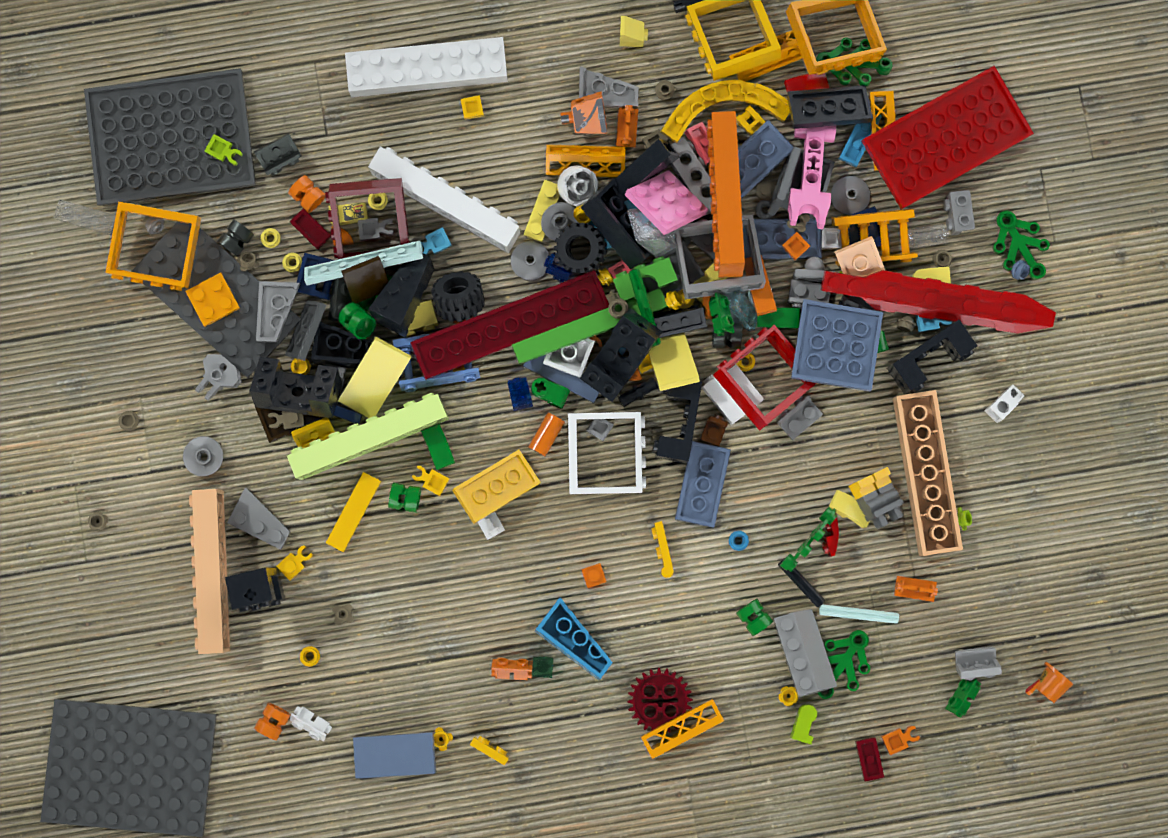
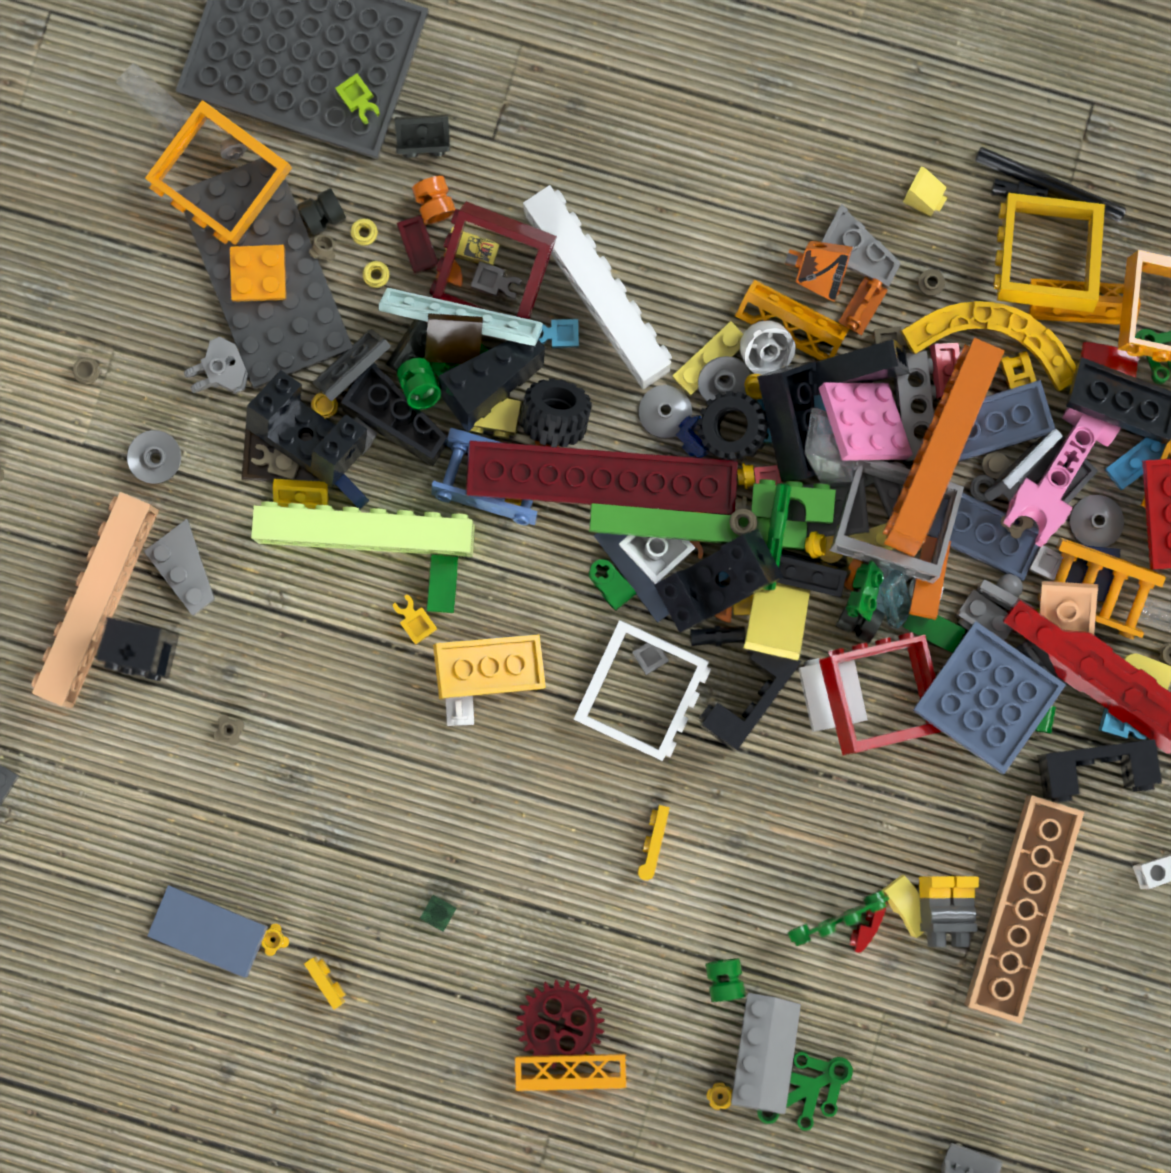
camera: 30 degrees right, 0 degrees up
(269, 728) = (73, 824): orange wheel -> none
(273, 308) = (325, 319): light grey wing -> none
(292, 564) = (197, 641): yellow plate -> none
(303, 656) = (156, 758): yellow plate -> none
(310, 260) = (371, 309): dark blue plate -> none
(316, 729) = (128, 852): white hinge -> none
(353, 512) = (302, 612): yellow tile -> none
(371, 201) = (515, 257): light yellow plate -> none
(374, 378) = (405, 463): light yellow tile -> none
(412, 497) = (379, 631): green wheel -> none
(426, 67) = (654, 115): white brick -> none
(472, 107) = (685, 190): yellow plate -> none
(503, 667) = (412, 901): orange hinge -> none
(520, 393) = (573, 567): clear blue bracket -> none
(546, 434) = (581, 633): orange brick -> none
(569, 636) = (489, 893): dark azure wedge -> none
(593, 575) = (554, 832): orange plate -> none
(702, 484) = (742, 787): sand blue tile -> none
(714, 430) = (788, 727): reddish brown bracket -> none
(745, 368) = (876, 664): yellow plate -> none
(745, 540) = (752, 886): dark azure plate -> none
(796, 246) = (998, 551): orange plate -> none
(799, 418) = (900, 763): light grey bracket -> none
(804, 586) = (805, 972): black axle -> none
(804, 718) = (719, 1140): lime leg -> none
(861, 614) = (855, 1039): light aqua axle -> none
(906, 324) = (1087, 713): dark tan plate -> none
(915, 588) = (940, 1042): orange hinge -> none
(964, 518) = (1042, 986): lime plate -> none

